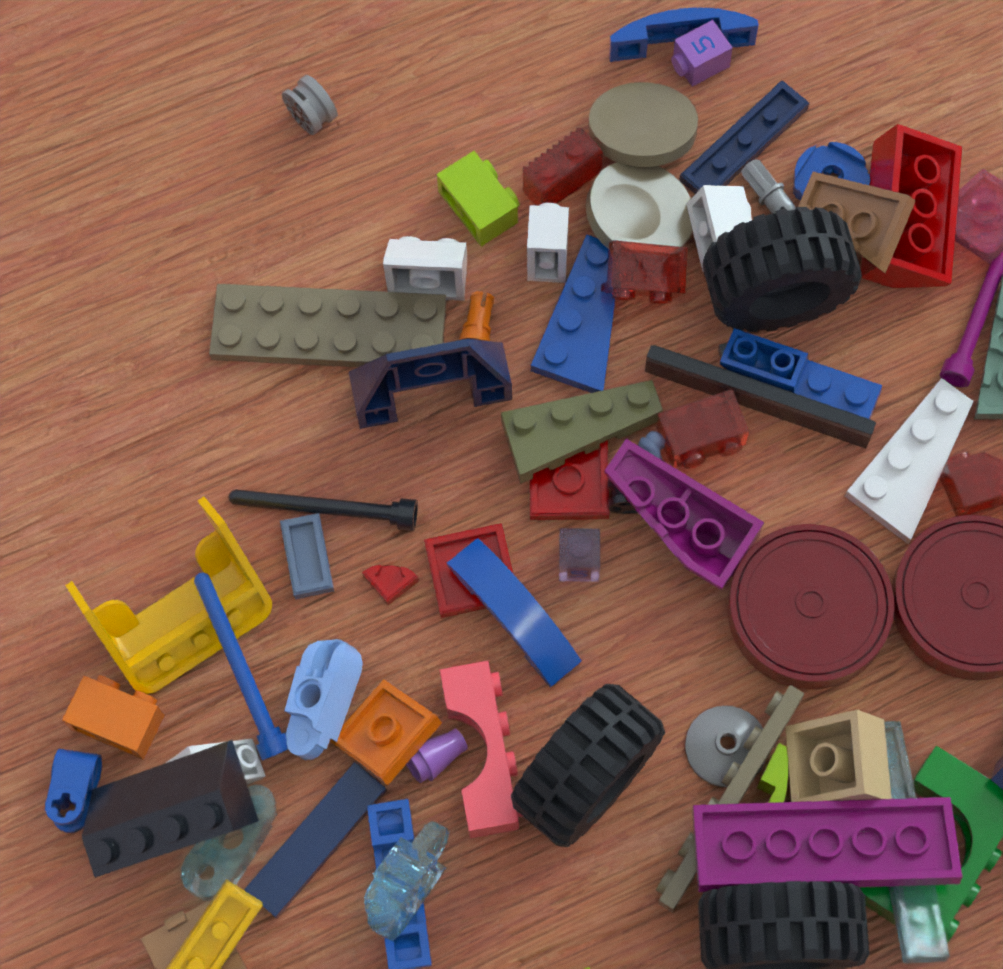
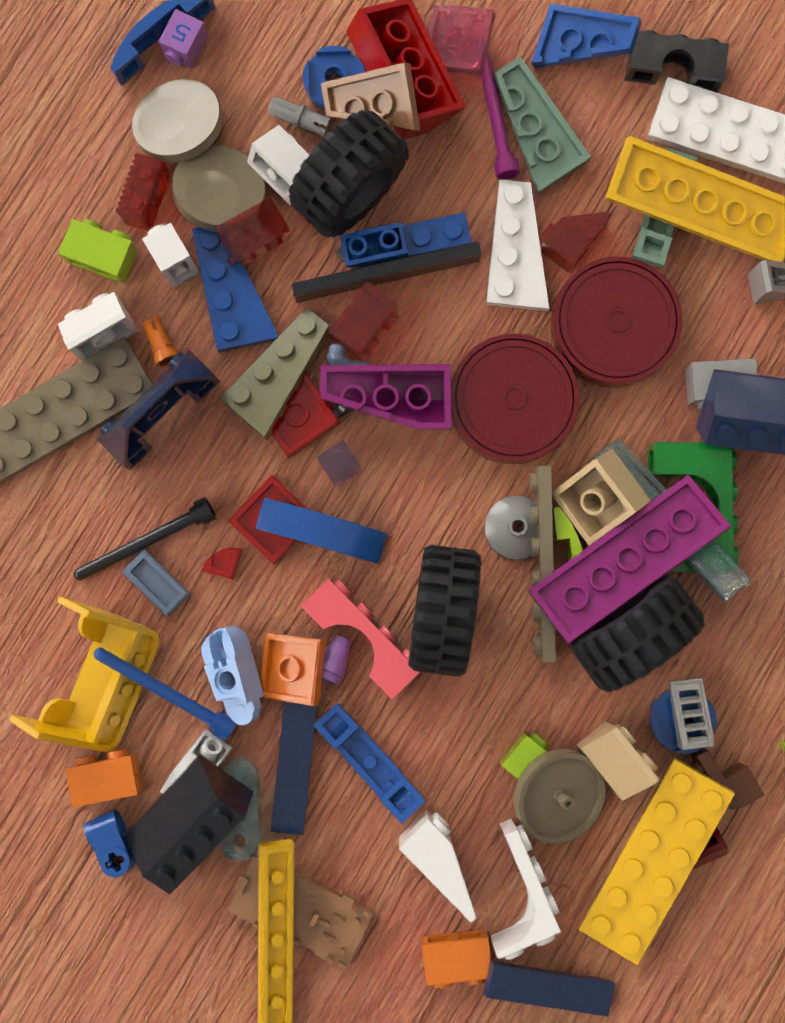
camera: 35 degrees left, 15 degrees up
(405, 880) = (373, 761): clear light blue piece -> none
(746, 139) = (255, 86): dark blue tile -> none

